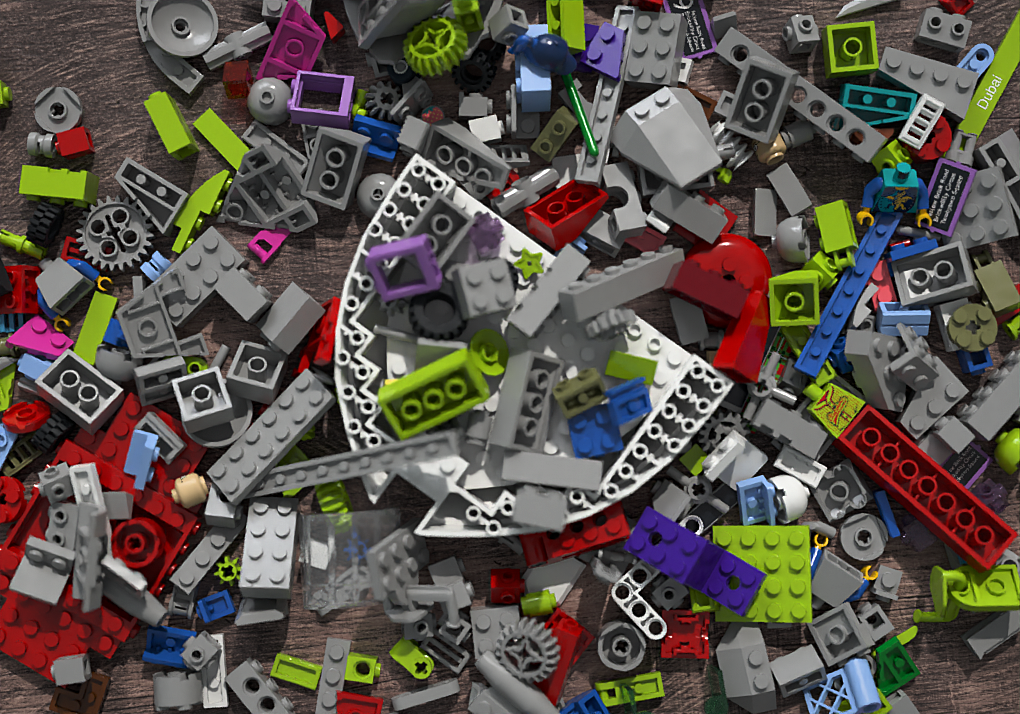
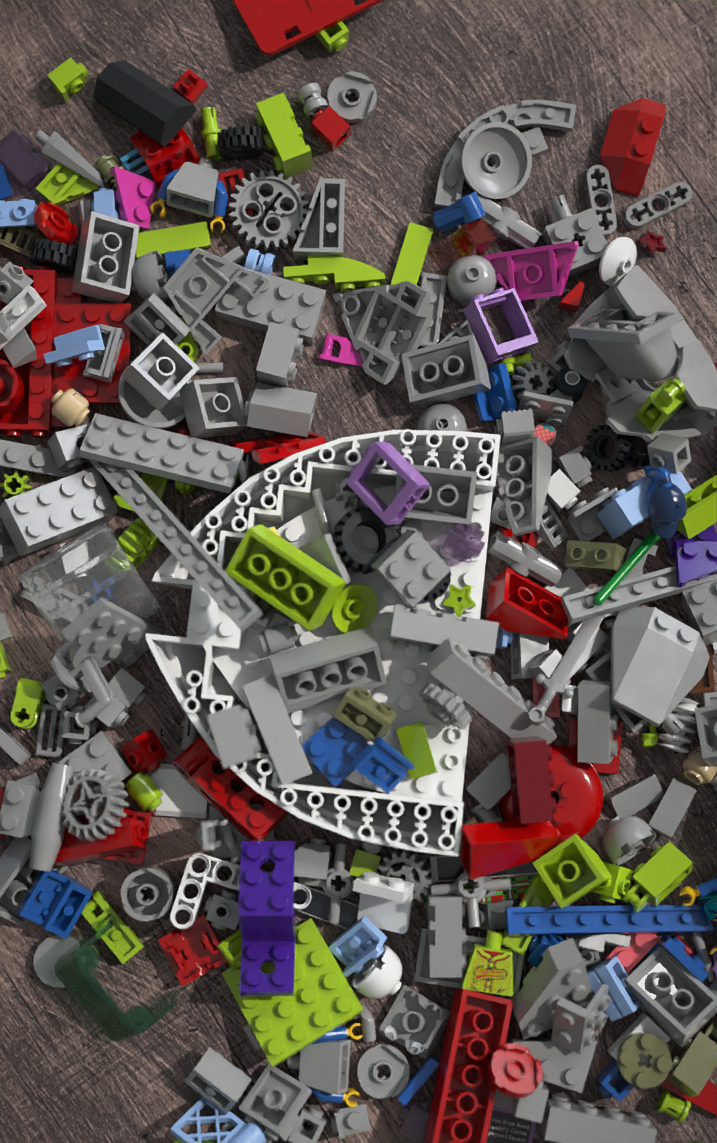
camera: 60 degrees right, 5 degrees down
(171, 125) = (396, 203): lime brick -> none
(208, 73) = (463, 211): none -> blue piece
(450, 43) = (610, 396): lime gear -> none
(635, 215) = (564, 669): none -> light grey sword
(746, 667) = (193, 1028): light grey wedge -> none
(799, 466) = (415, 968): white plate -> none
(924, 433) = (515, 1071): none -> tile

